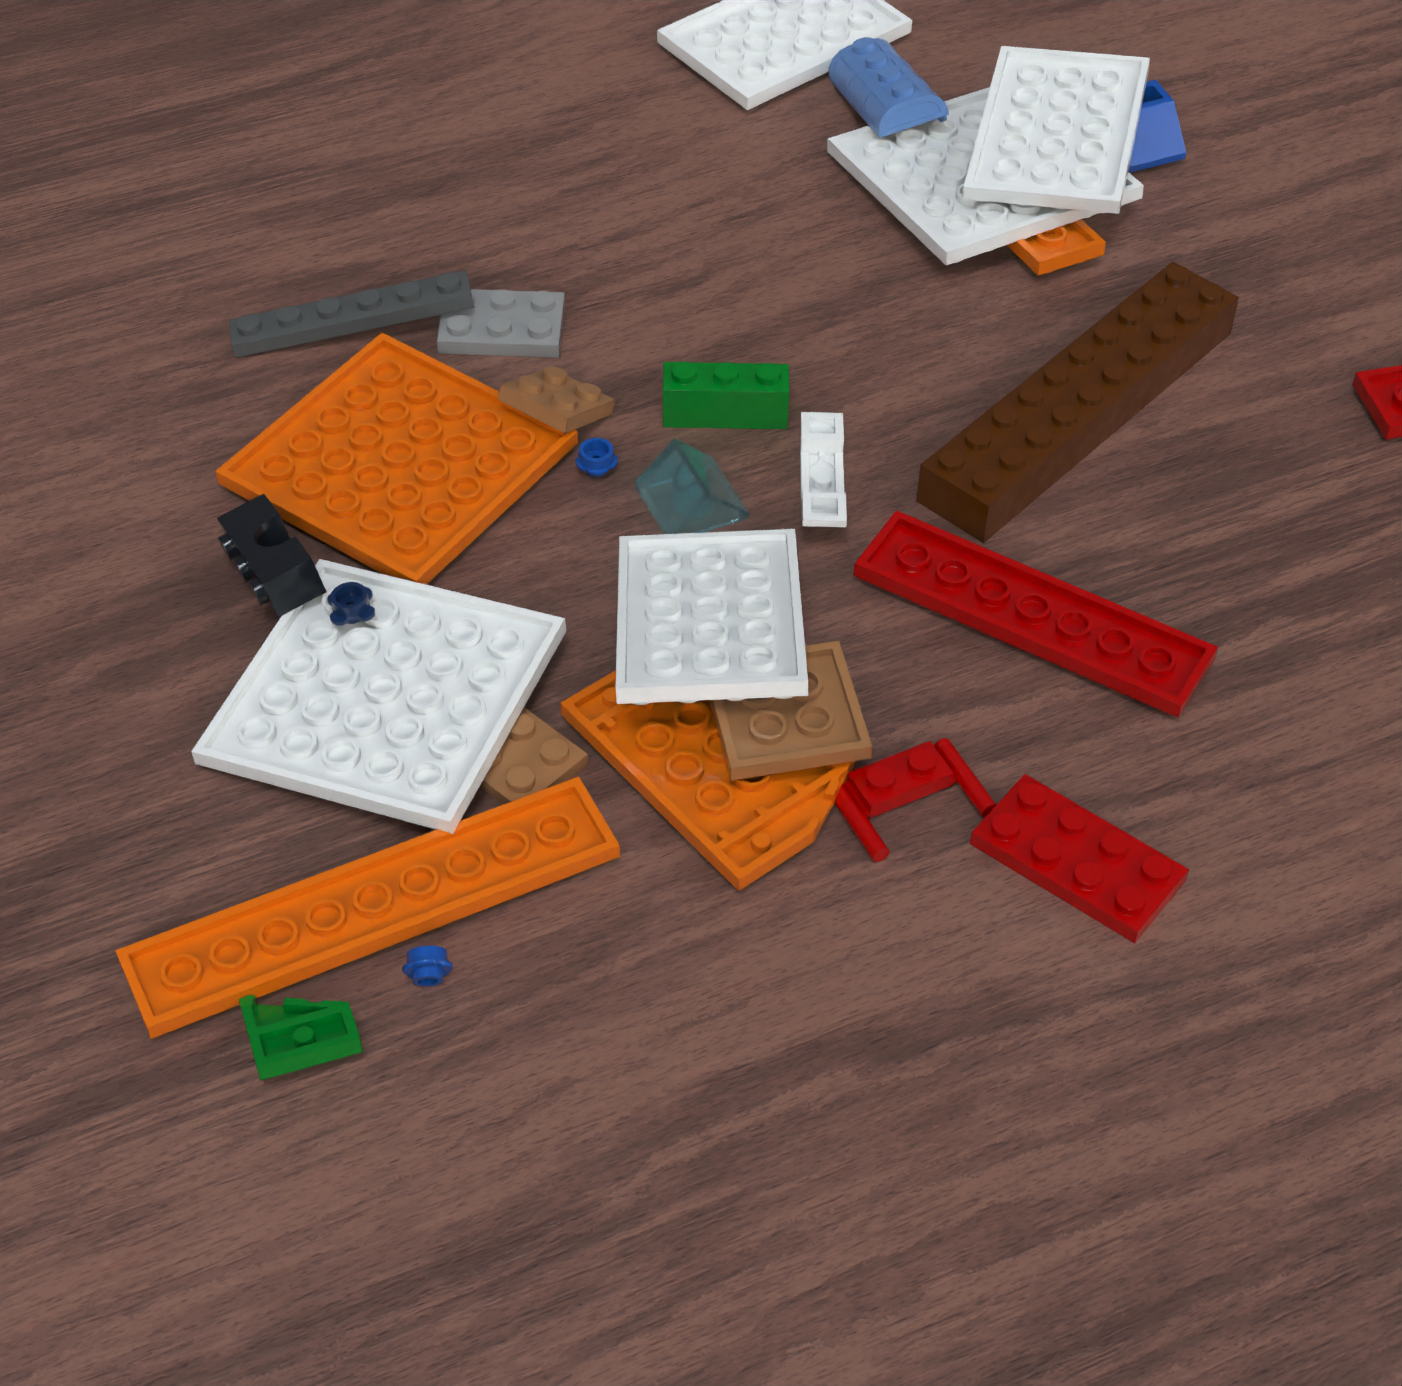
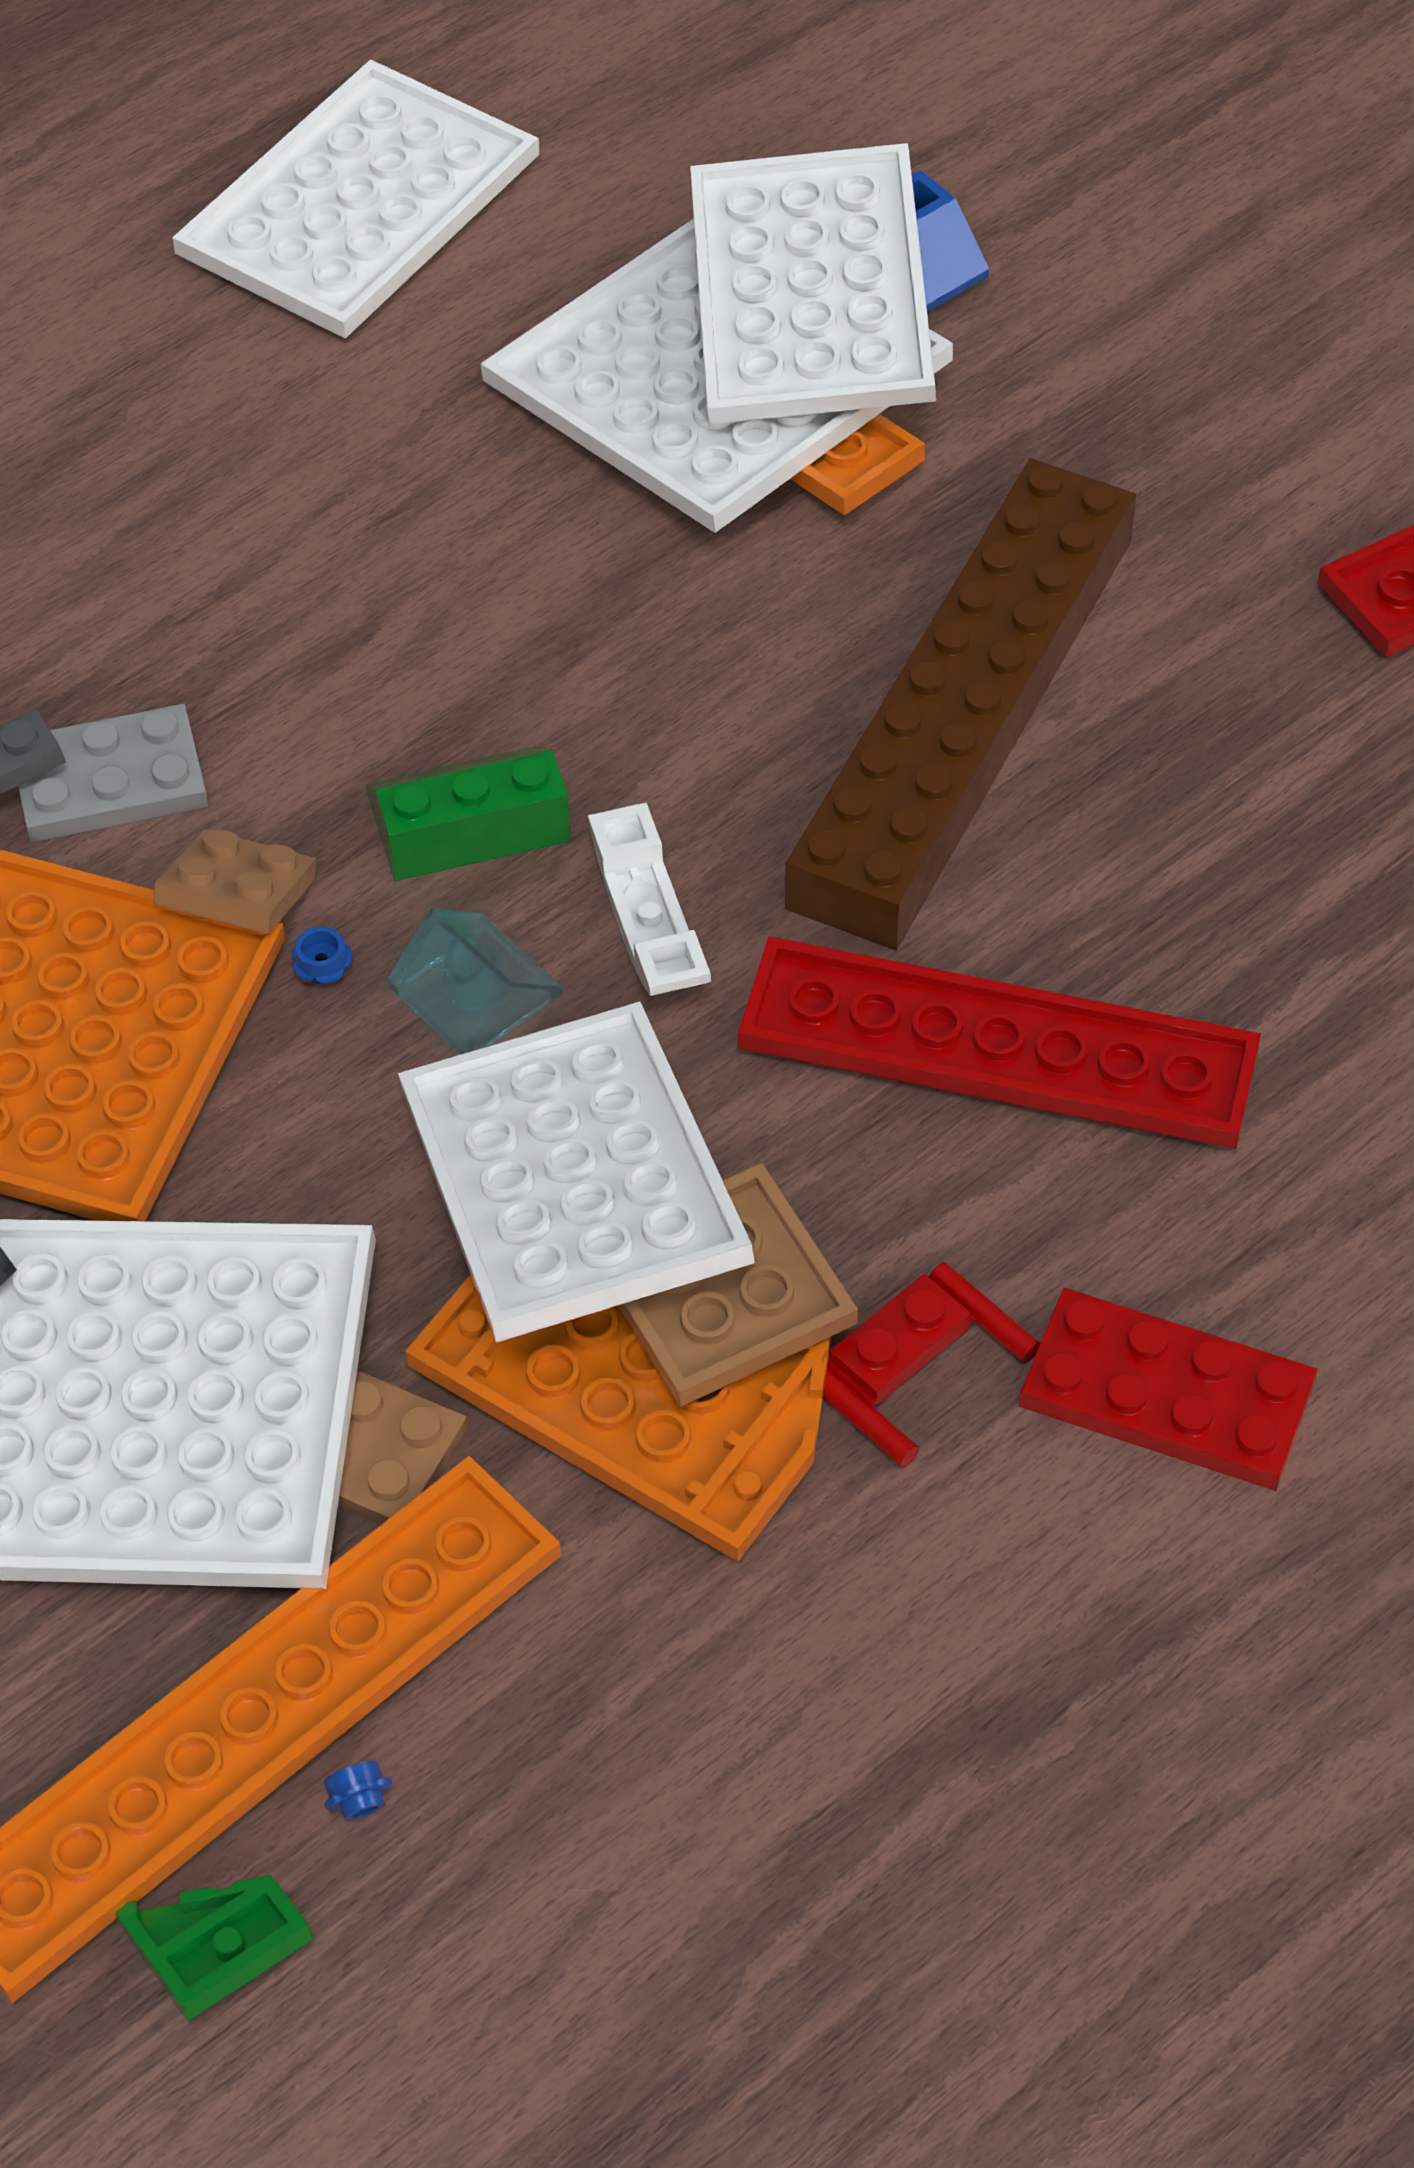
camera: 15 degrees left, 5 degrees up
(350, 604) = (59, 1268): dark blue plate -> none
(884, 87) = (536, 263): medium blue container -> none

